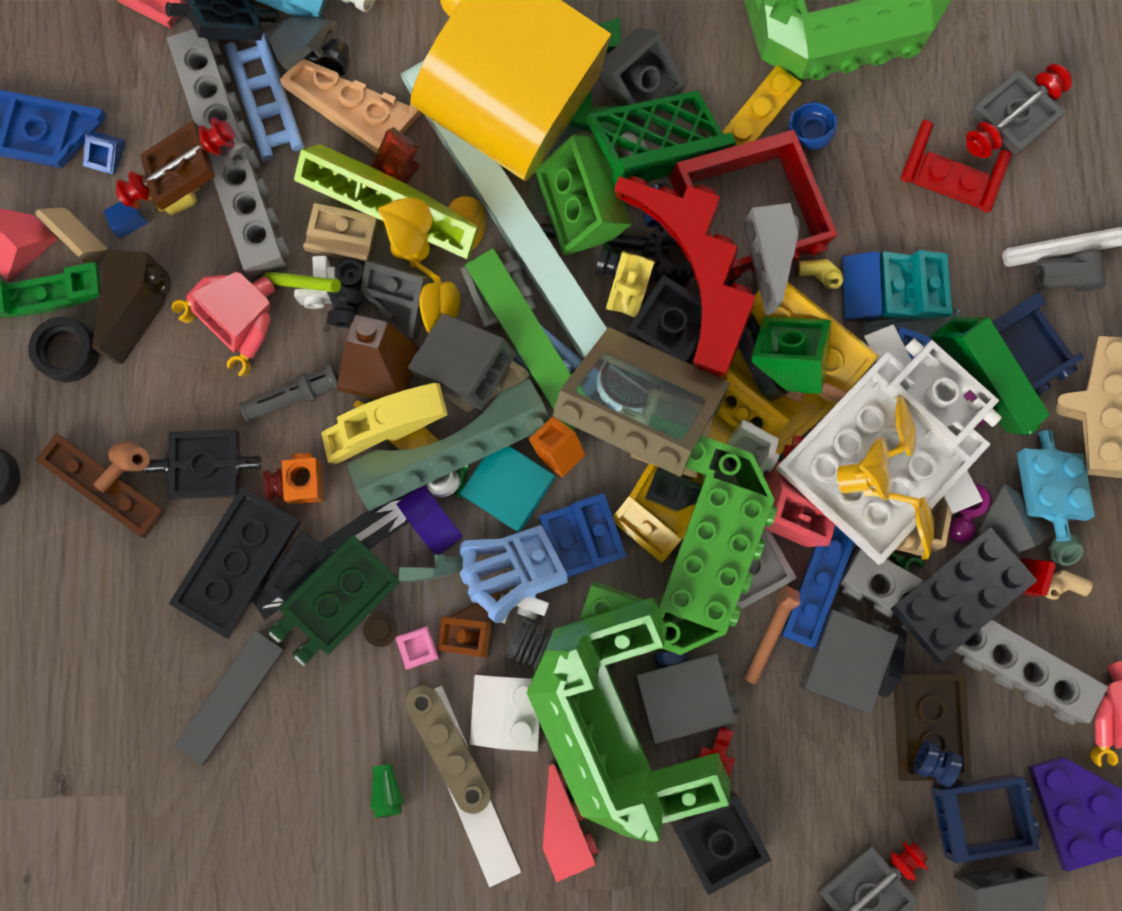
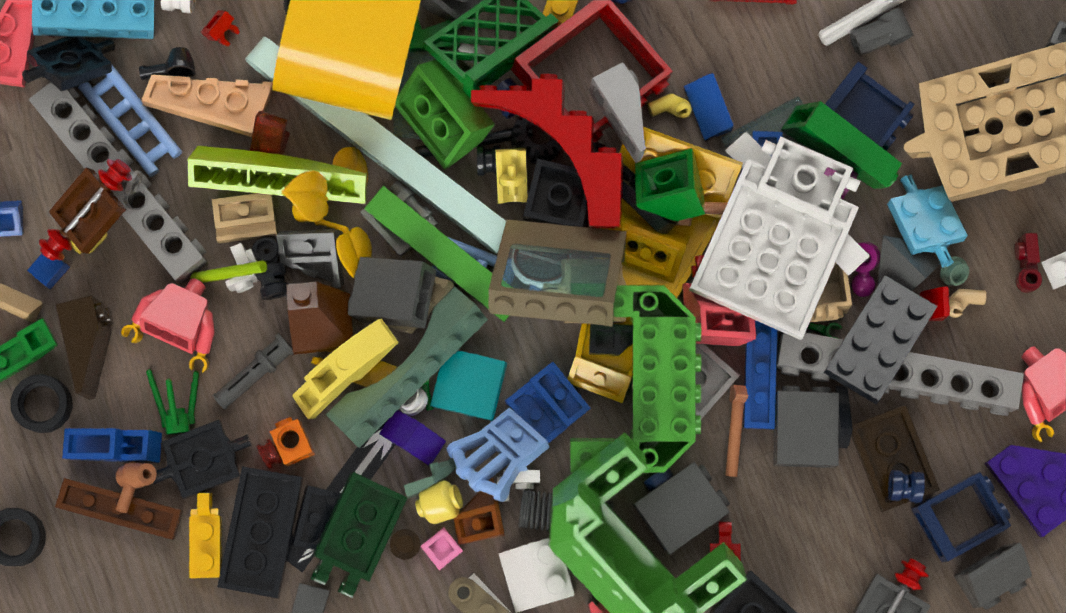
camera: 20 degrees left, 0 degrees up
(119, 417) = (112, 445): none -> blue slope
(177, 548) = (205, 539): none -> yellow hinge
(193, 414) = (175, 419): none -> green plant
(298, 37) = (144, 59): dark grey slope -> none
(386, 33) = (218, 26): none -> red tile
(432, 598) = (439, 502): none -> light yellow head
(557, 446) = (499, 336): orange brick -> none
(758, 442) = (666, 274): white bracket -> none
(874, 471) = (767, 269): yellow plant -> none
(915, 285) = (753, 90): teal slope -> none

